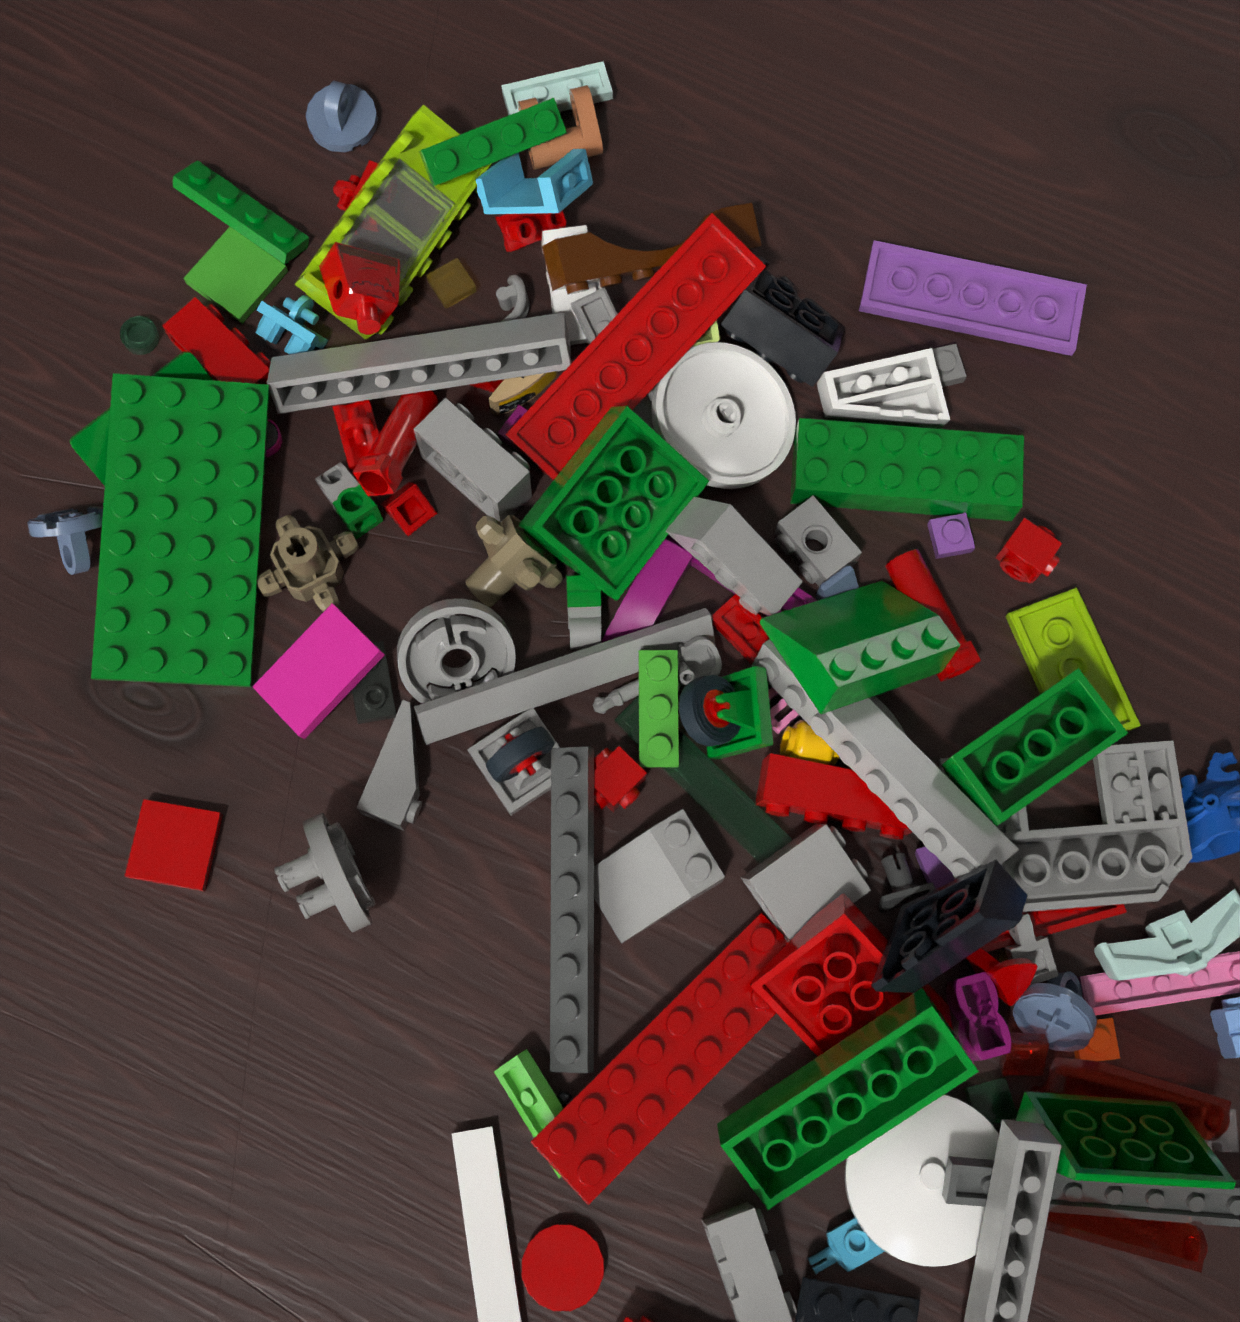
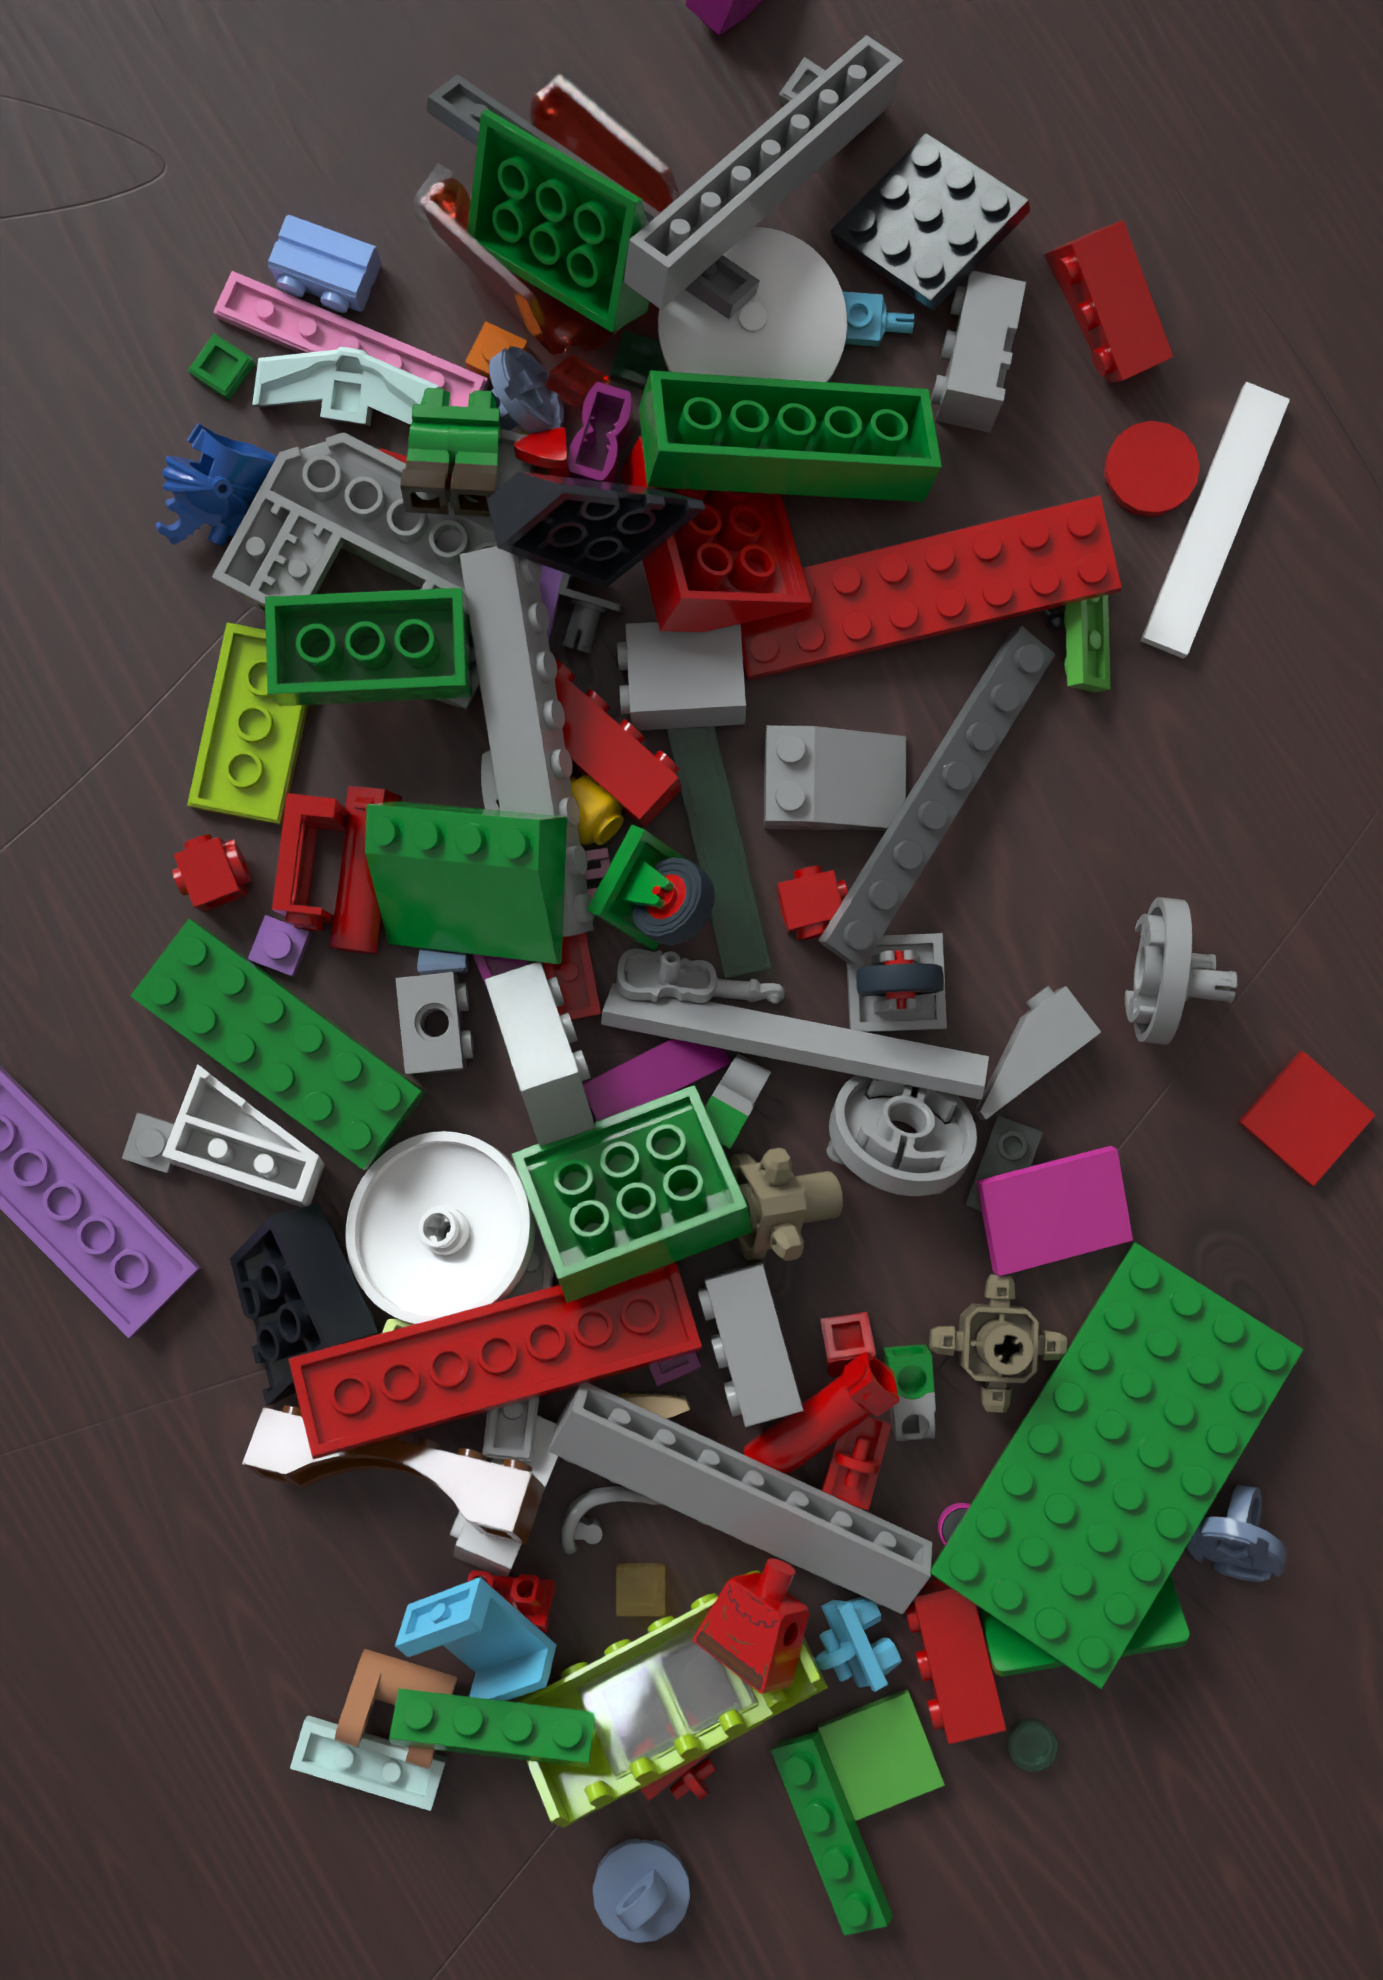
camera: 145 degrees left, 10 degrees up
(658, 708) = (721, 945): bright green plate -> none
(988, 623) = (297, 854): none -> red panel
(1073, 928) = (447, 438): none -> hips

